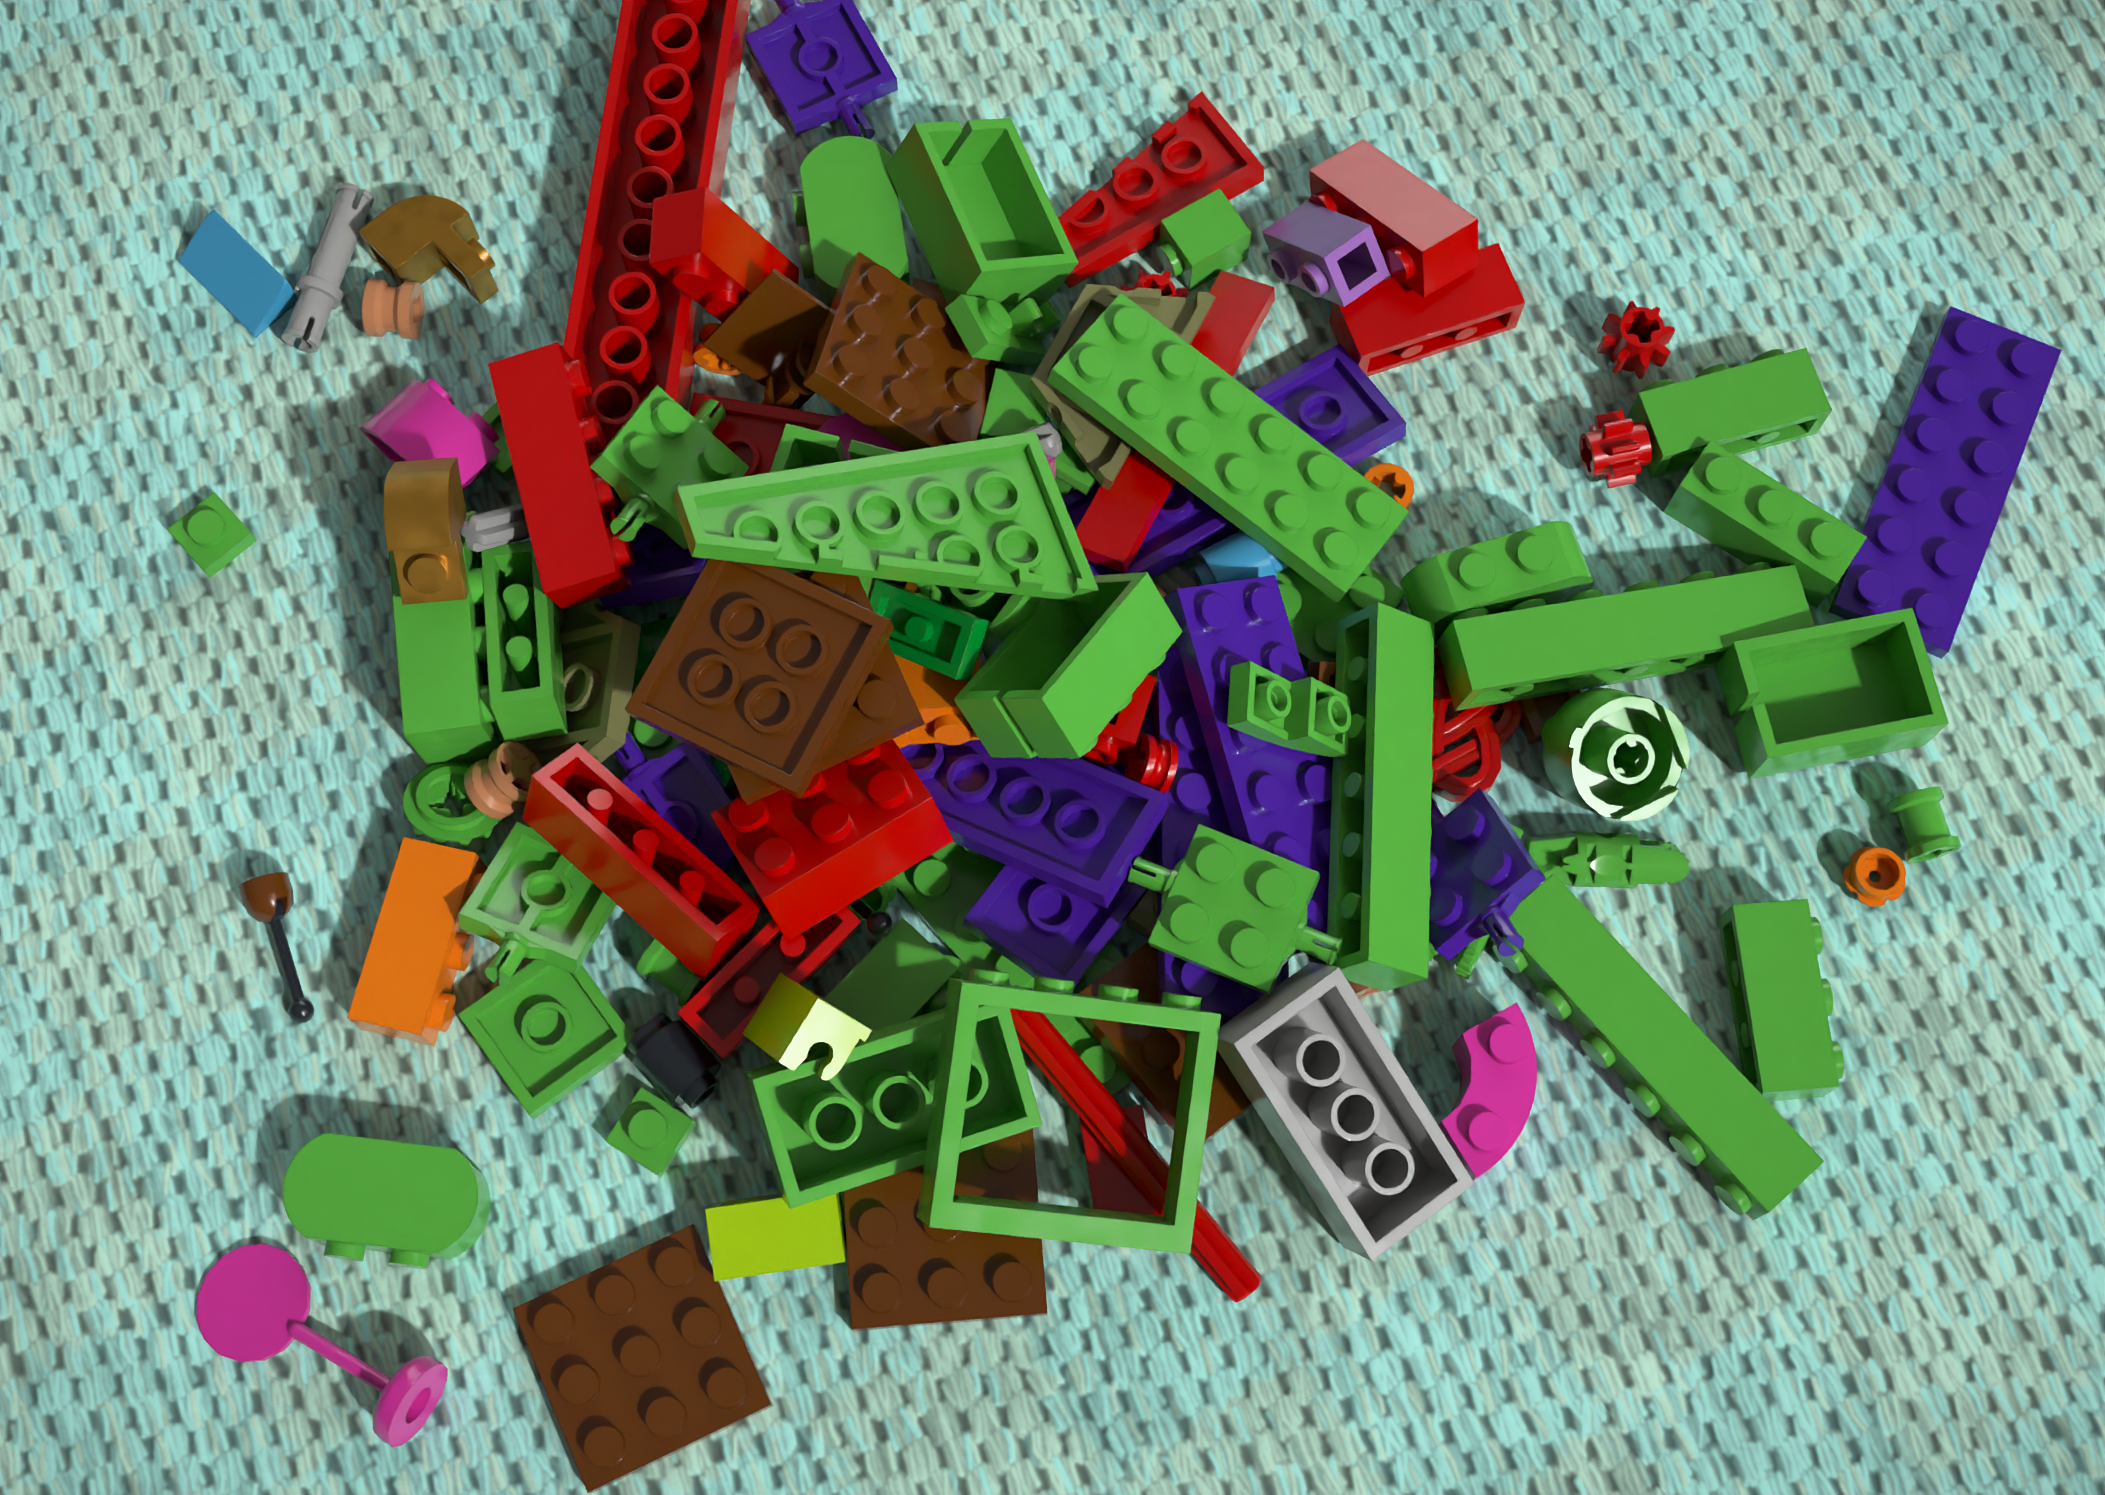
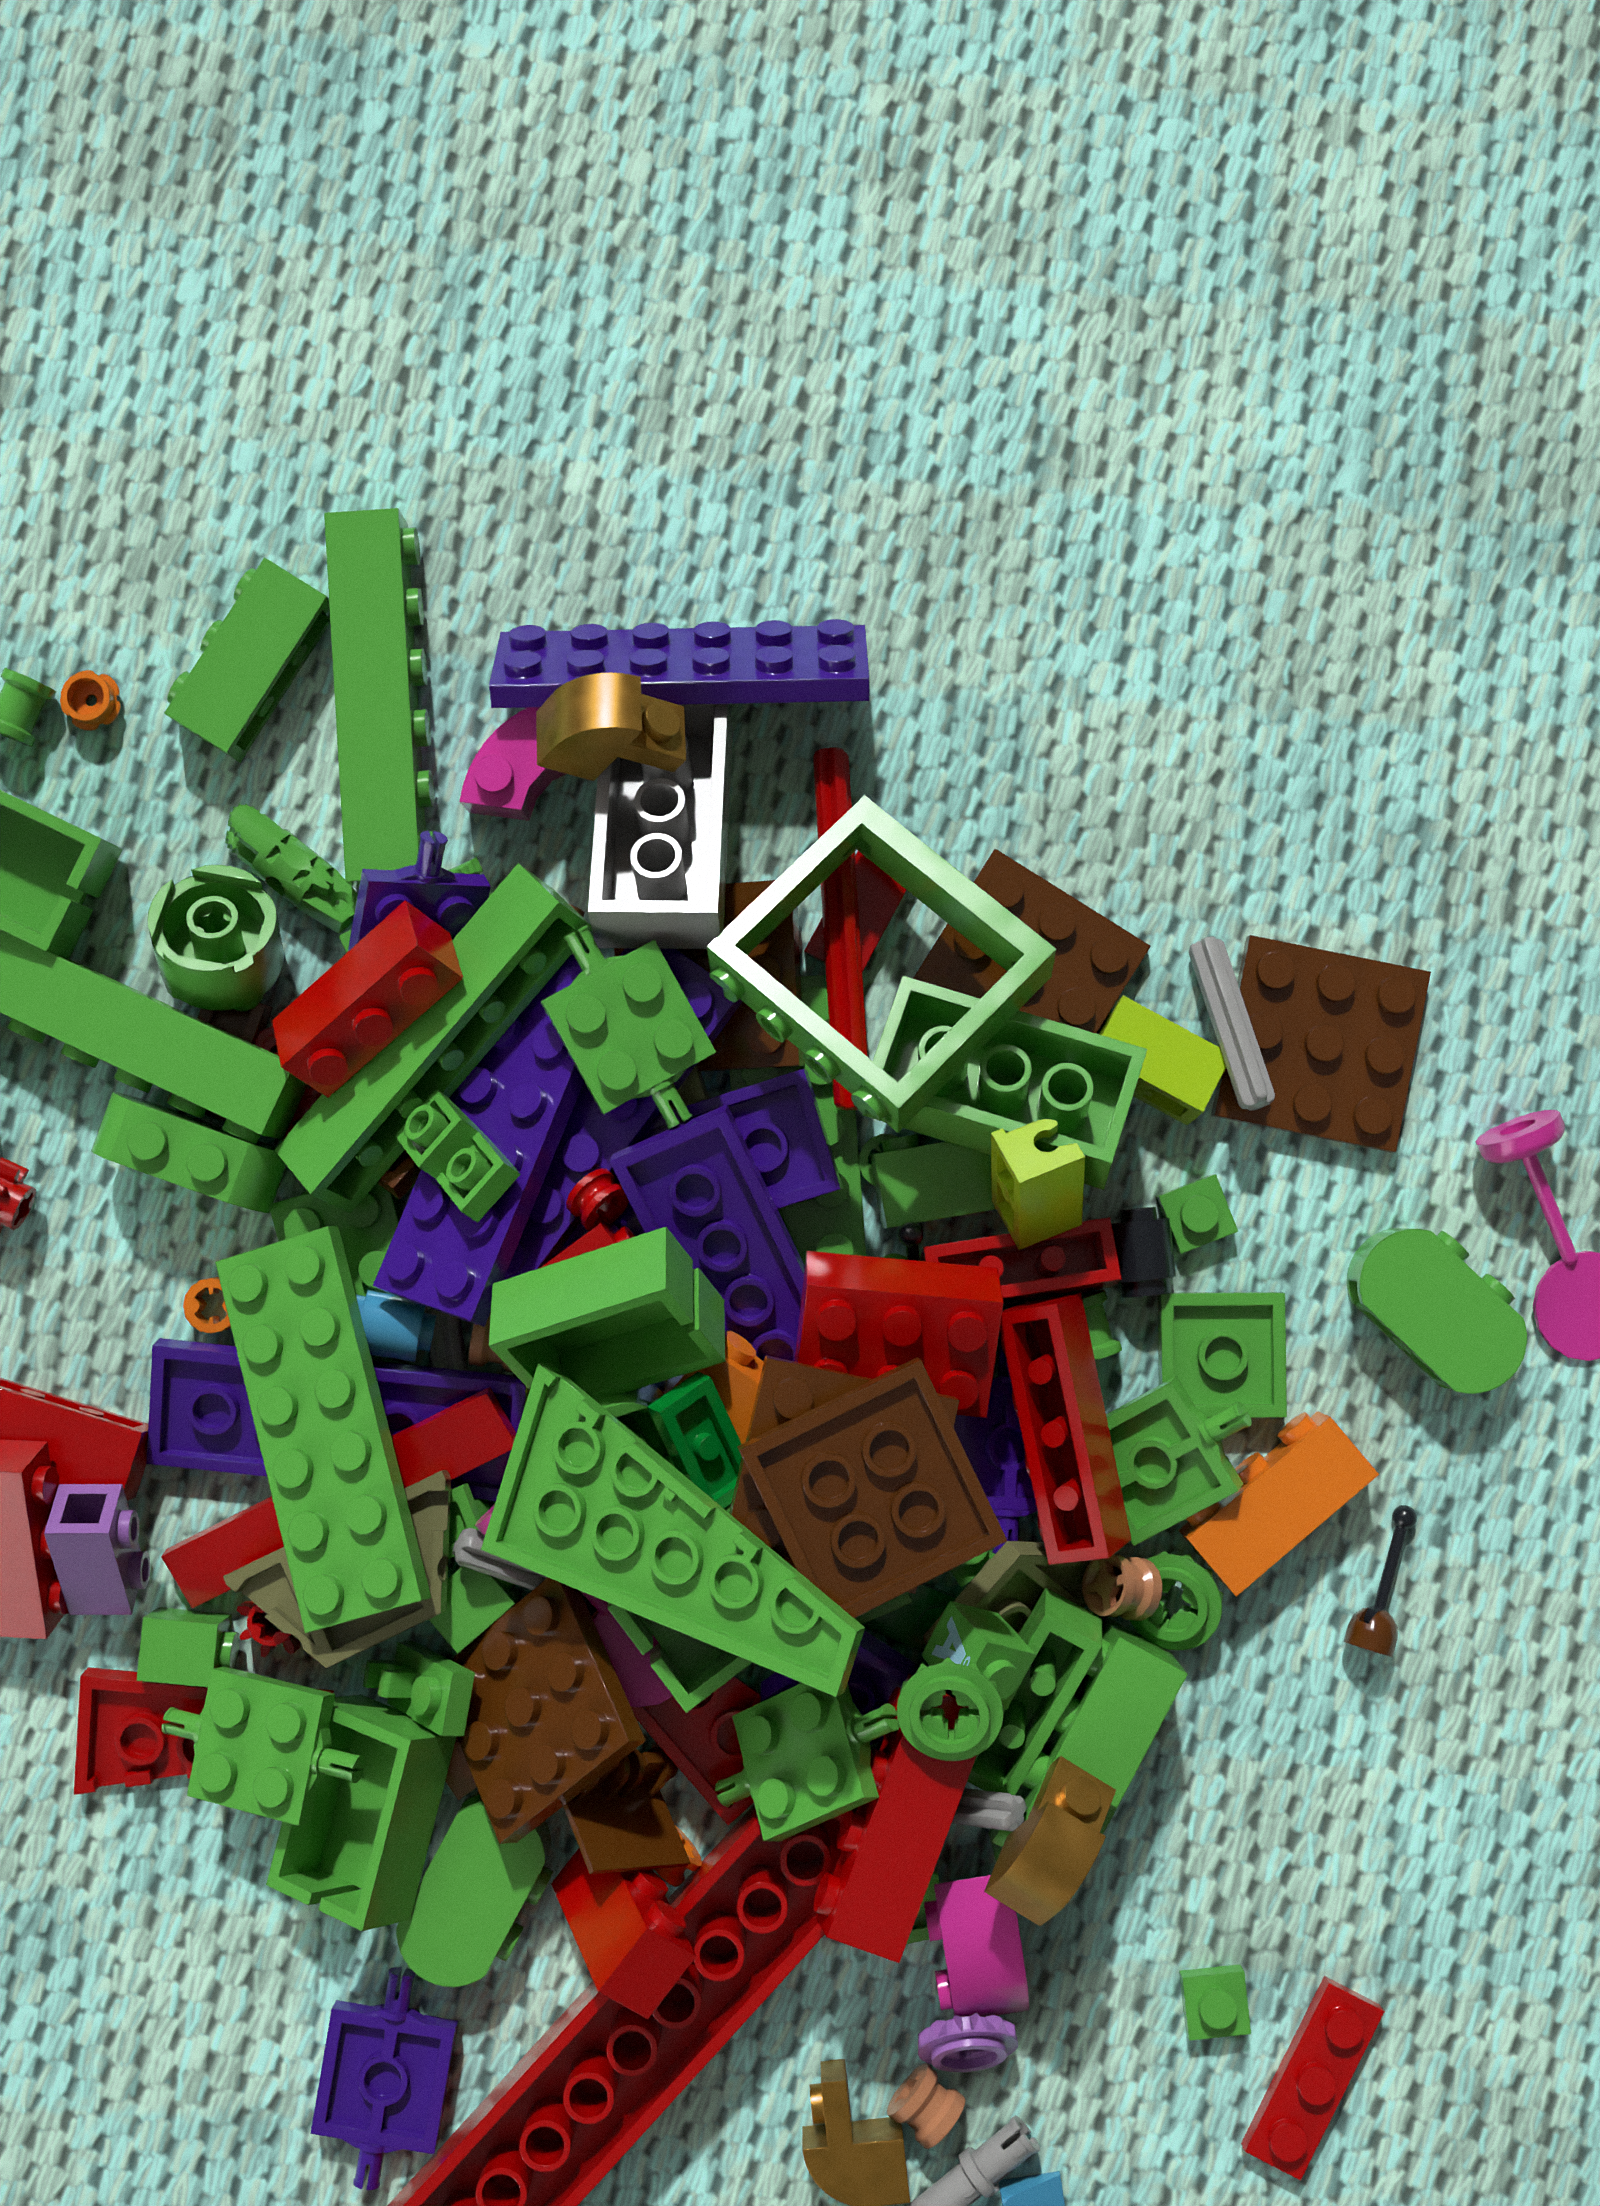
camera: 140 degrees left, 15 degrees up
(94, 534) = (1312, 2078): none -> red plate
(392, 370) = (967, 2043): none -> medium lavender gear
(585, 540) = (927, 1727): none -> bright green gear
(585, 631) = (982, 1638): none -> bright green brick
(733, 1308) = (1231, 1024): none -> light grey axle
(1090, 203) = (262, 1745): none -> bright green plate
(1427, 1261) = (688, 664): none -> dark purple plate
(1449, 1146) = (608, 718): none -> pearl gold brick
(1457, 781) = (366, 999): none -> red brick

